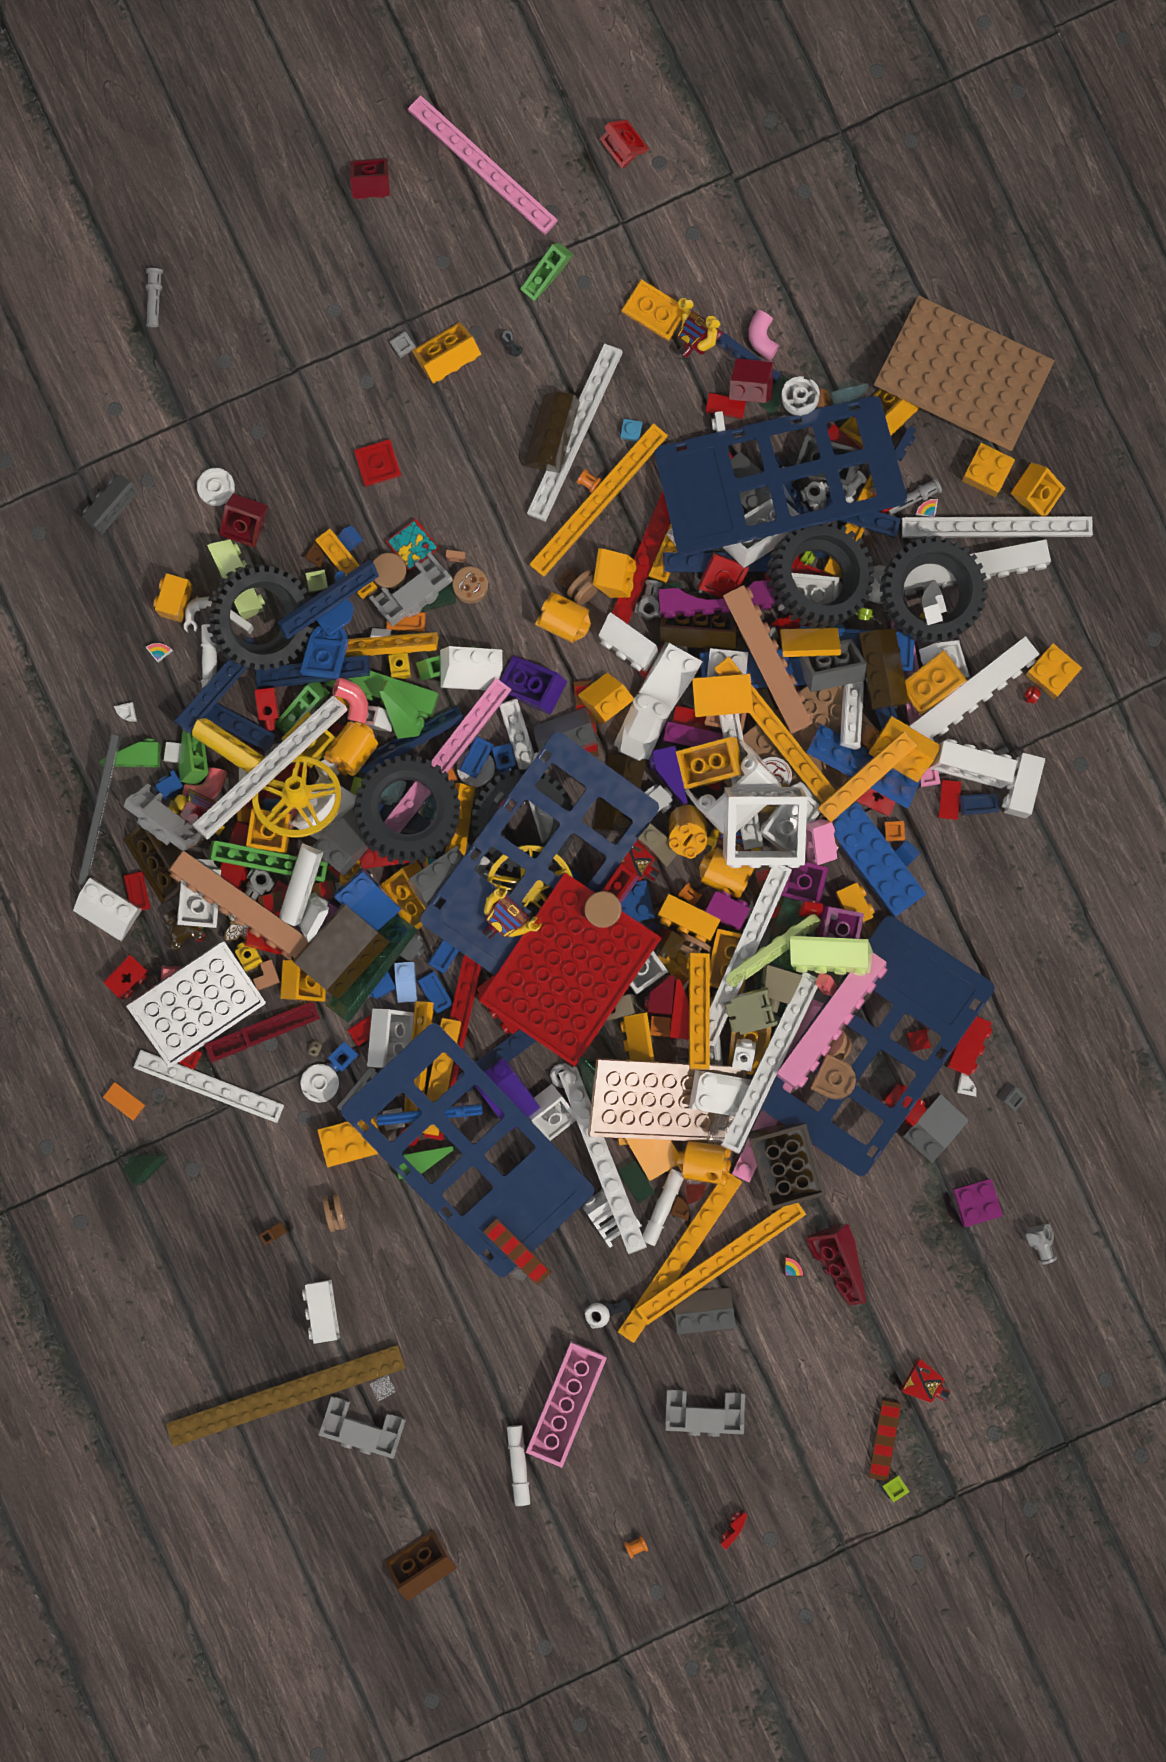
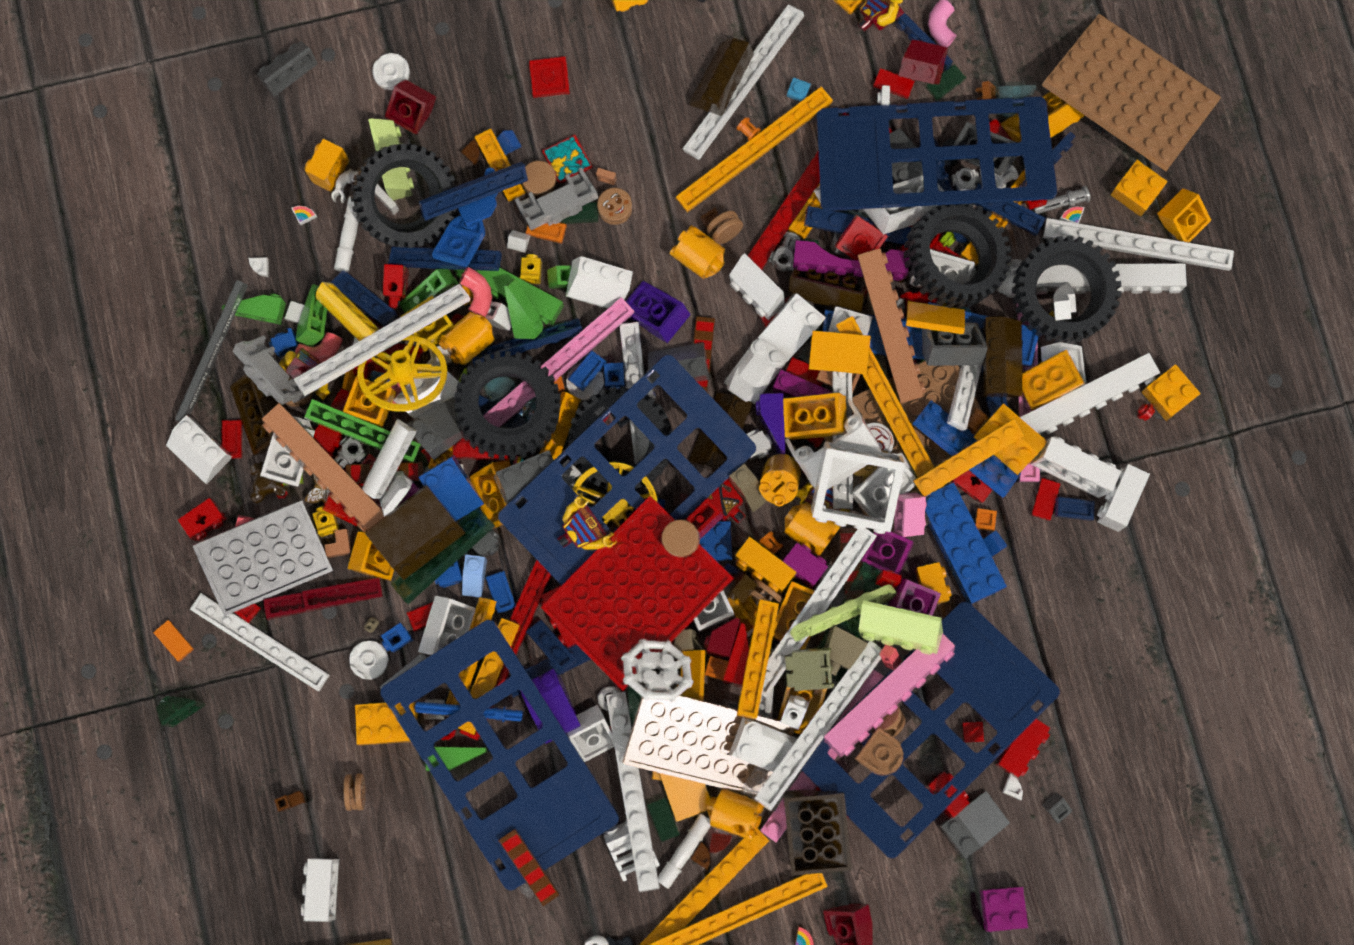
camera: 15 degrees right, 5 degrees down
(210, 693) = (342, 261): dark blue plate -> none
(316, 581) = (467, 174): yellowish green plate -> none
(392, 644) = (527, 247): light orange plate -> none
(443, 957) = (516, 558): blue tile -> none
(496, 1036) = (551, 646): none -> dark blue plate
(605, 698) = (725, 337): light orange slope -> none
(605, 1032) = (661, 661): none -> white plate
(614, 573) = (755, 219): light orange slope -> none
(800, 396) = (968, 84): white cylinder -> none
(864, 613) = (993, 303): lime plate -> none

